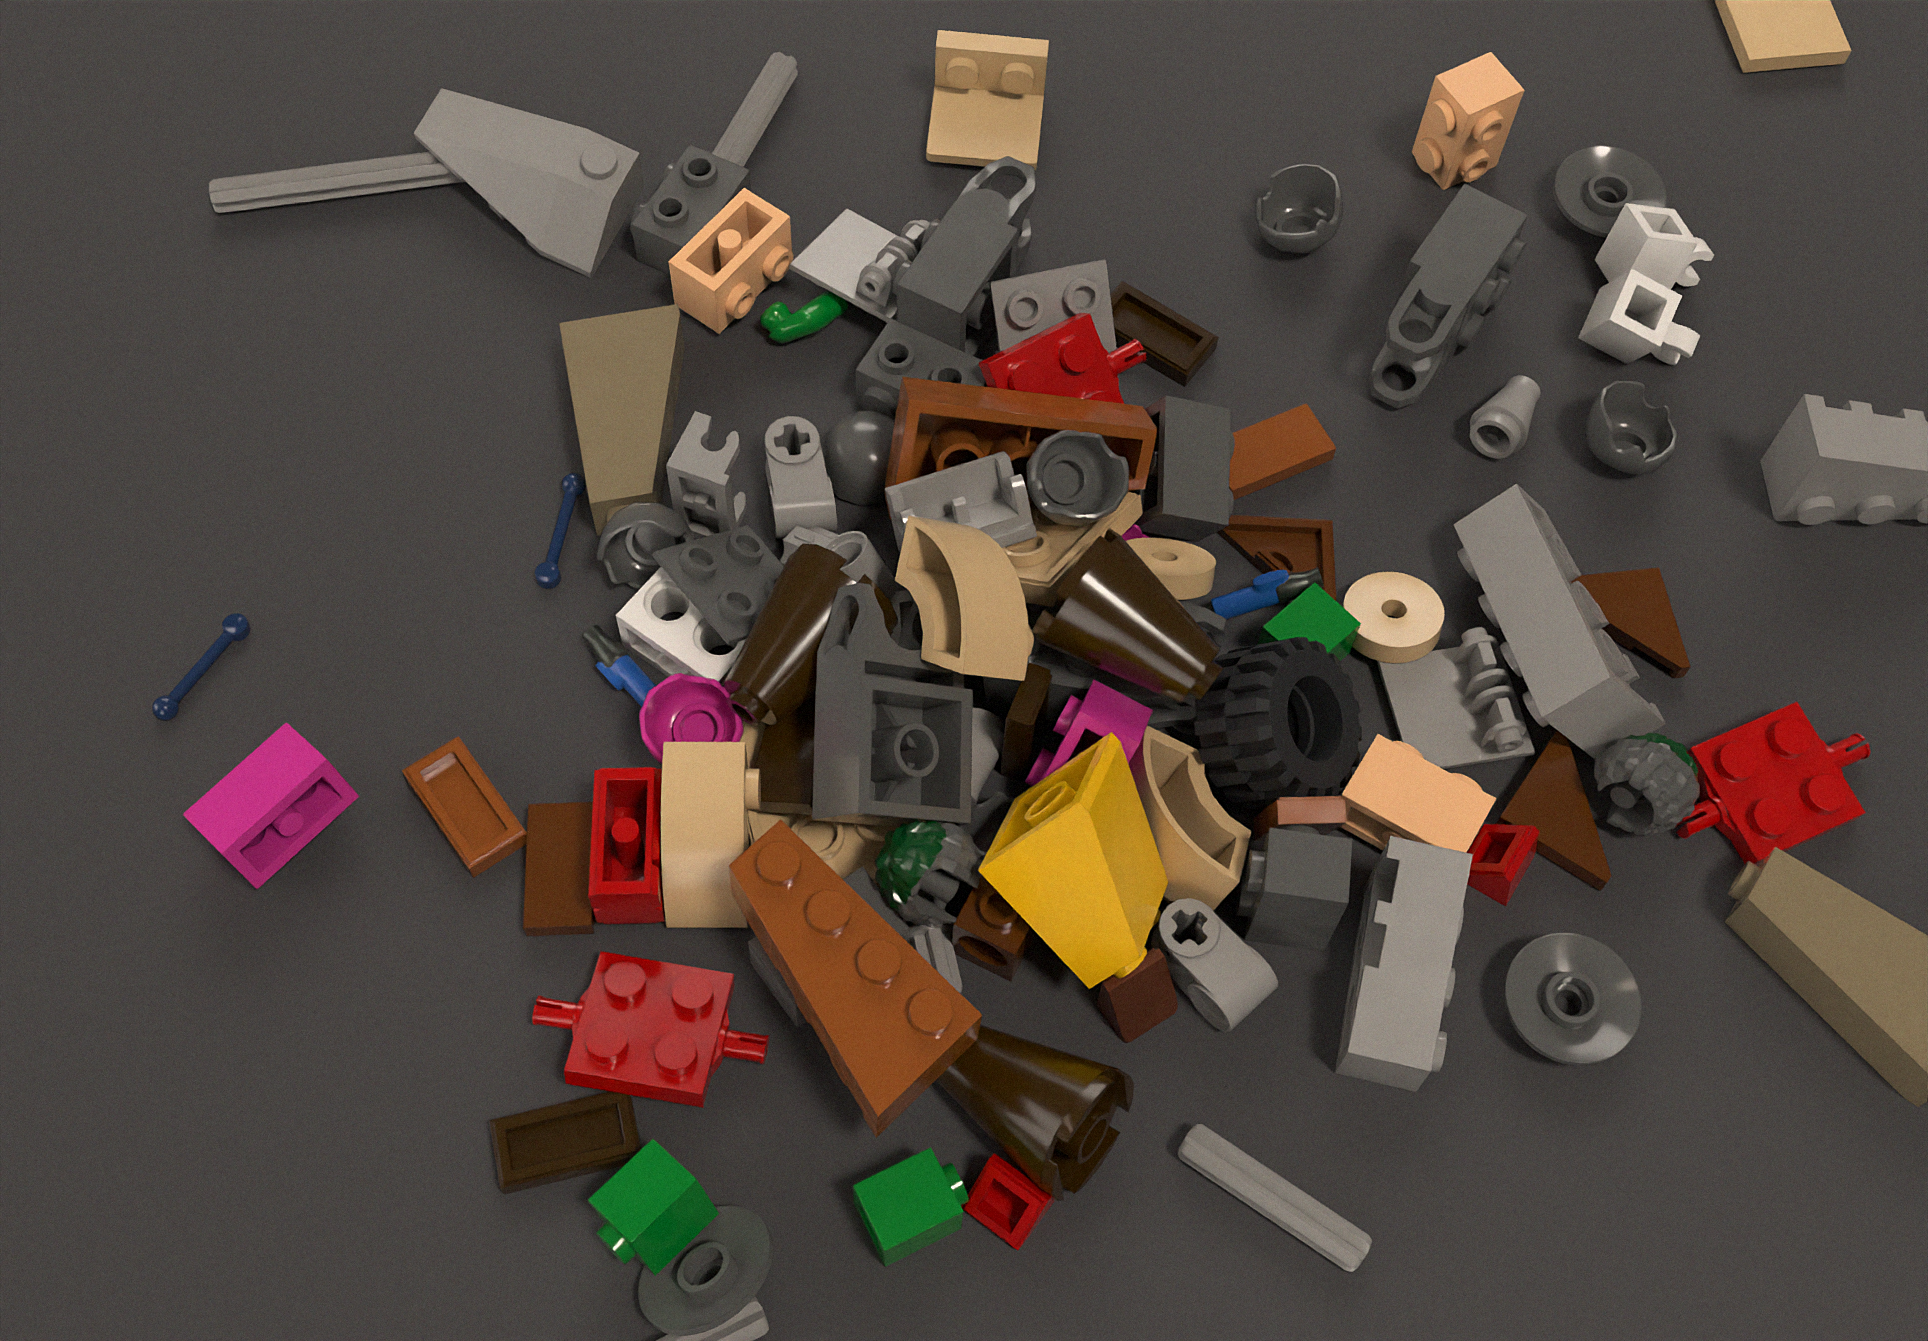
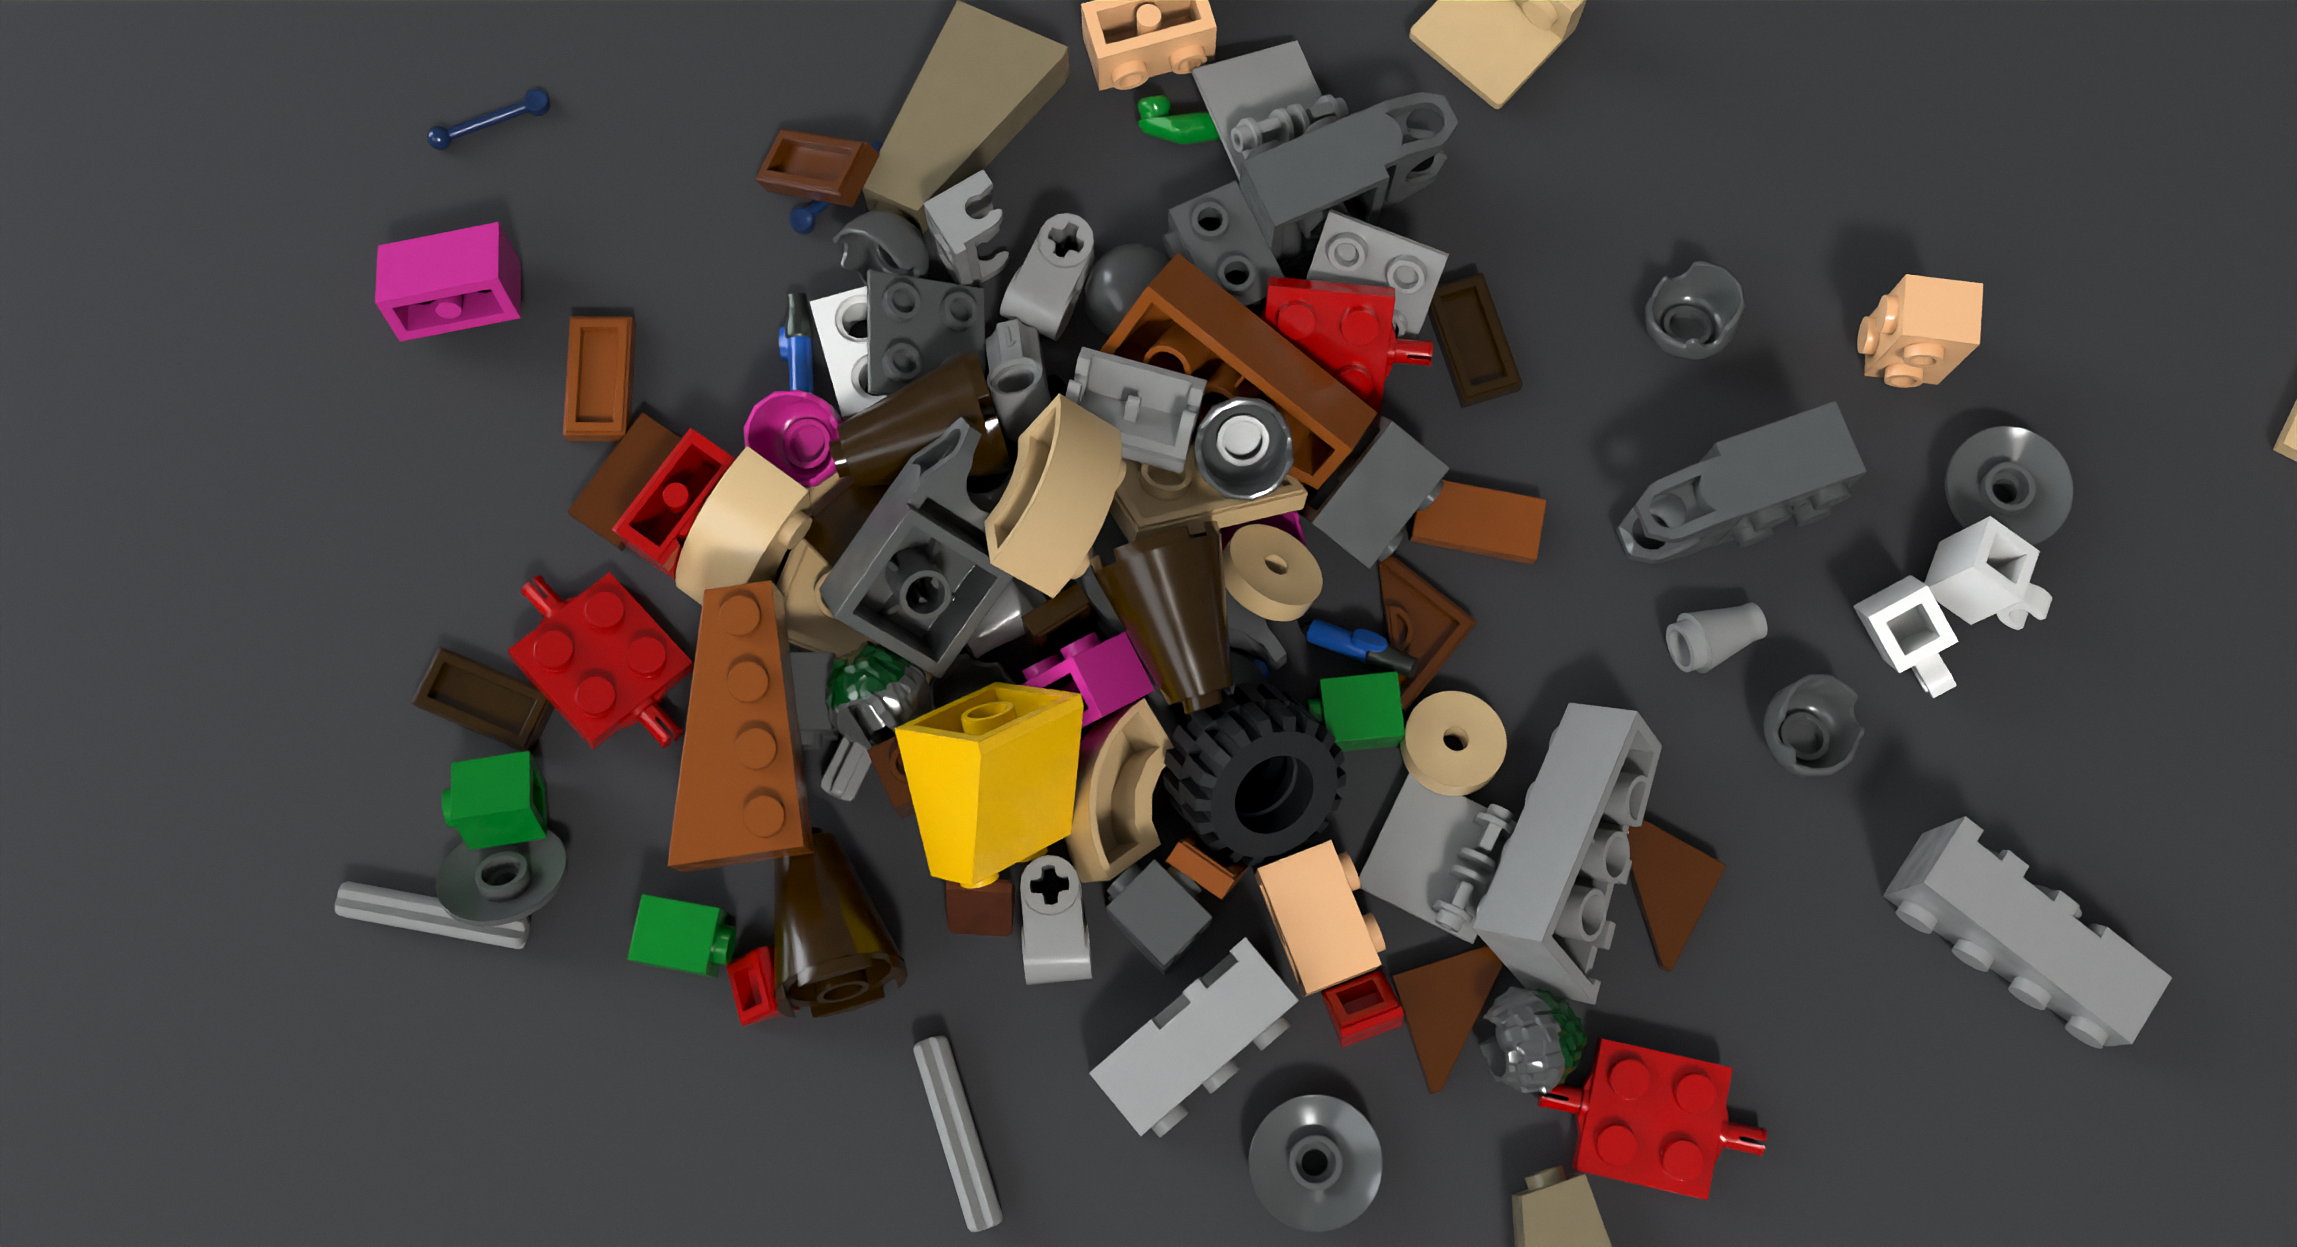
camera: 40 degrees right, 15 degrees up
(535, 517) = (817, 167): none -> reddish brown tile

